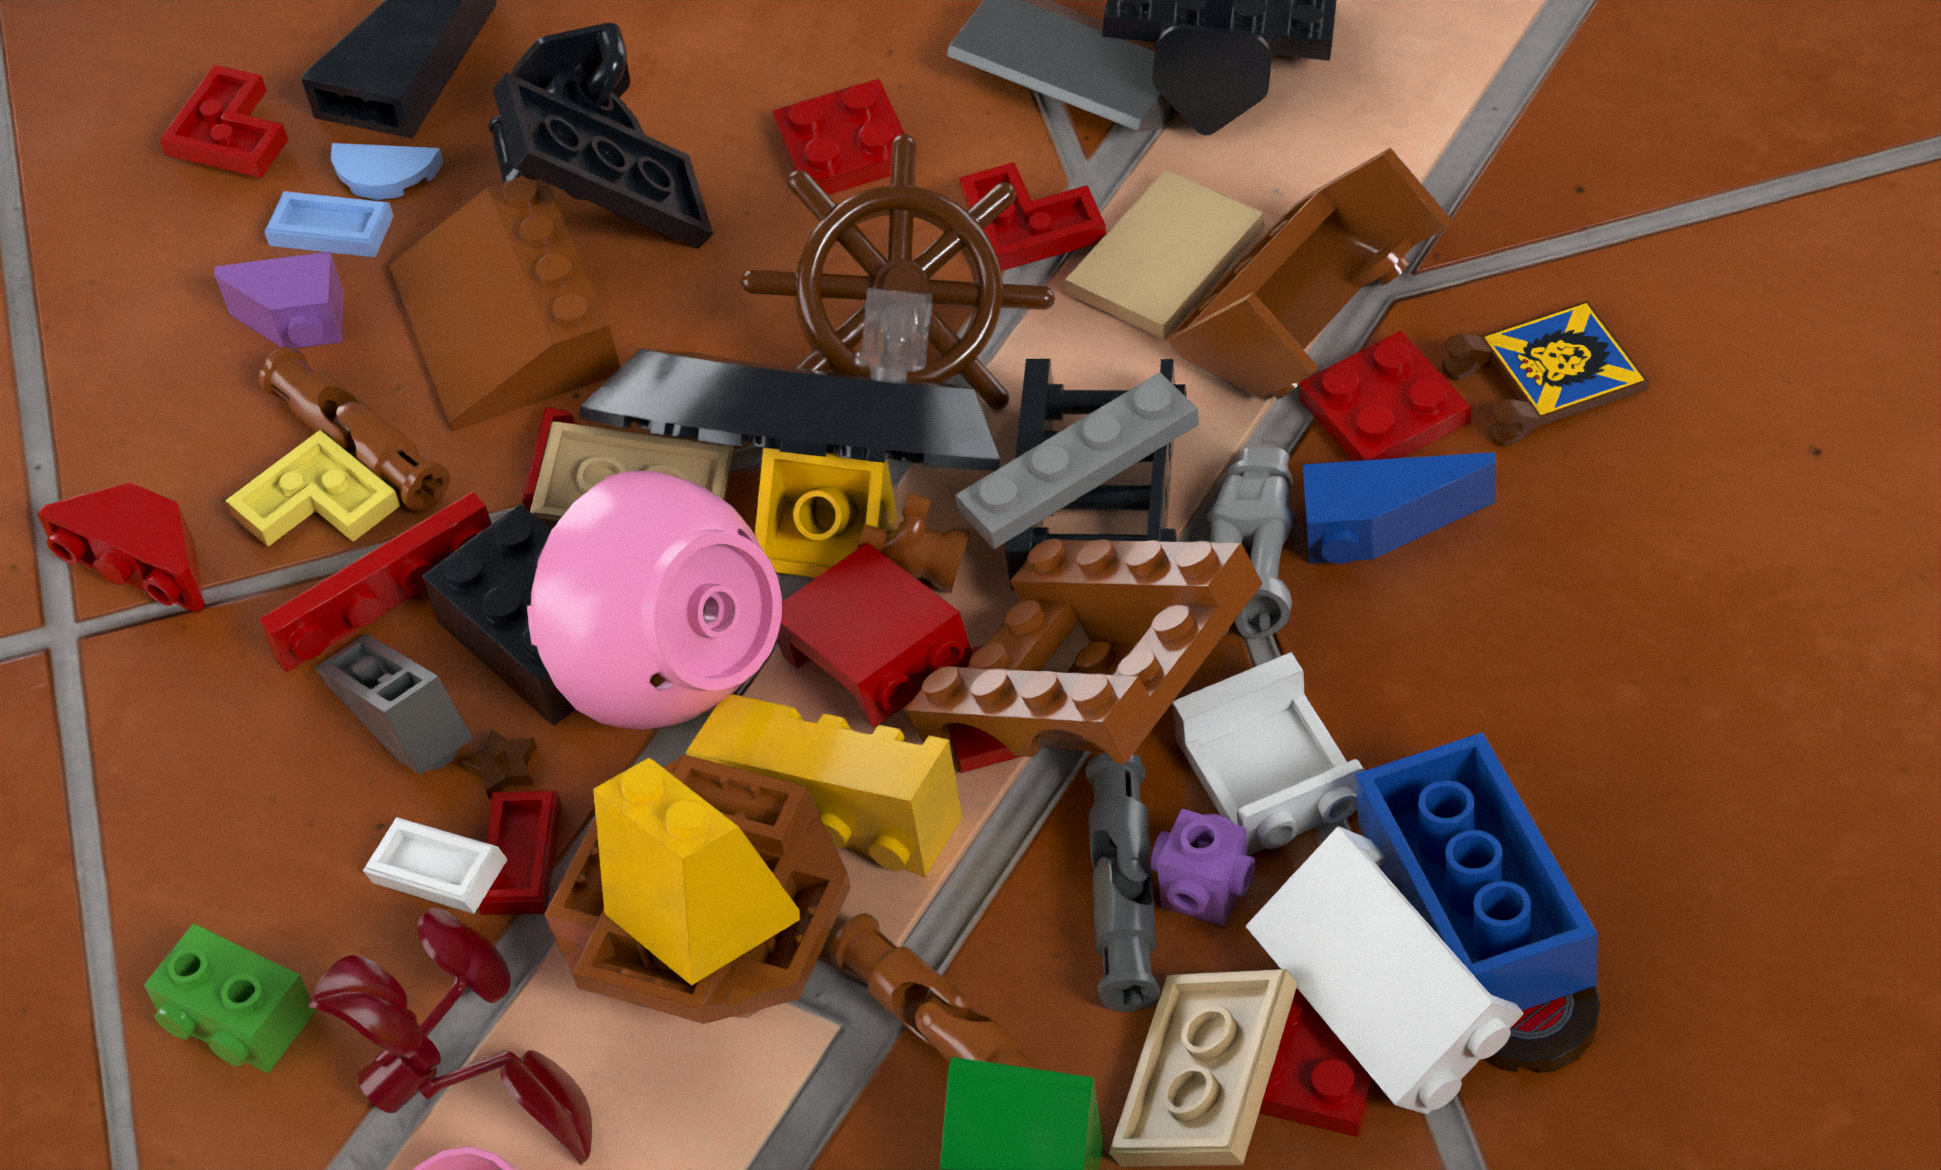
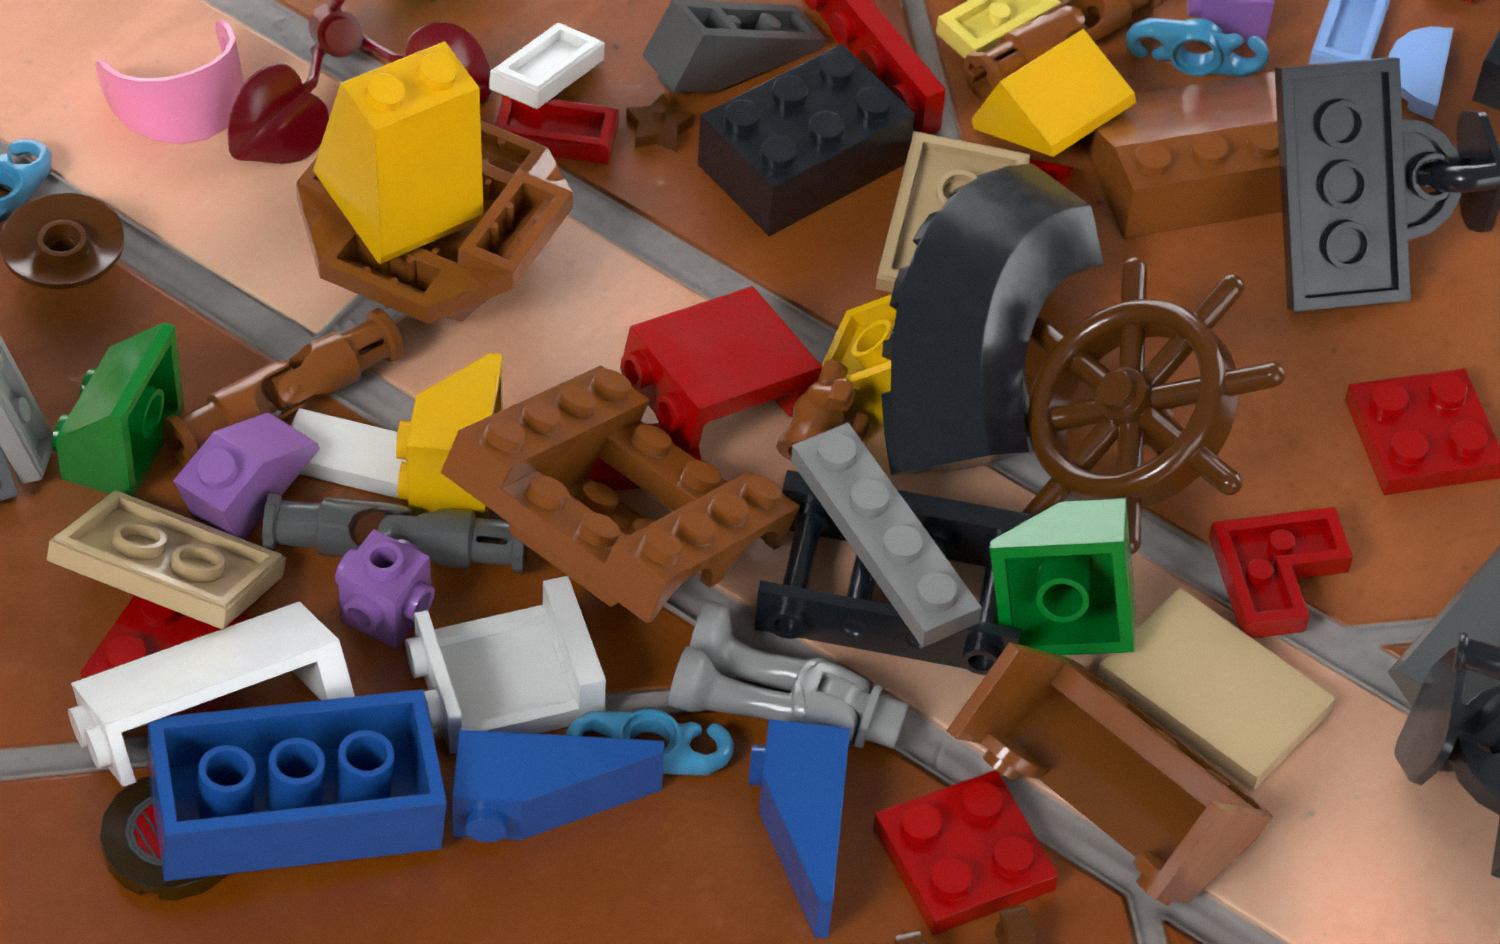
camera: 85 degrees right, 0 degrees up
(372, 325) = (1218, 61): none -> dark azure piece
(467, 417) = (1056, 98): none -> yellow slope
(627, 597) = (745, 132): bright pink piece -> none
(869, 789) = (564, 309): yellow wedge -> none
(895, 333) = (1048, 384): clear bracket -> none
(1013, 952) = (351, 452): none -> white tile
(1023, 817) = (435, 421): none -> yellow slope
(1079, 1015) = (238, 468): none -> medium lavender slope
(1101, 311) = (1068, 579): none -> green slope
(1318, 664) = (678, 755): none -> dark azure piece
(1401, 696) = (536, 782): none -> blue slope

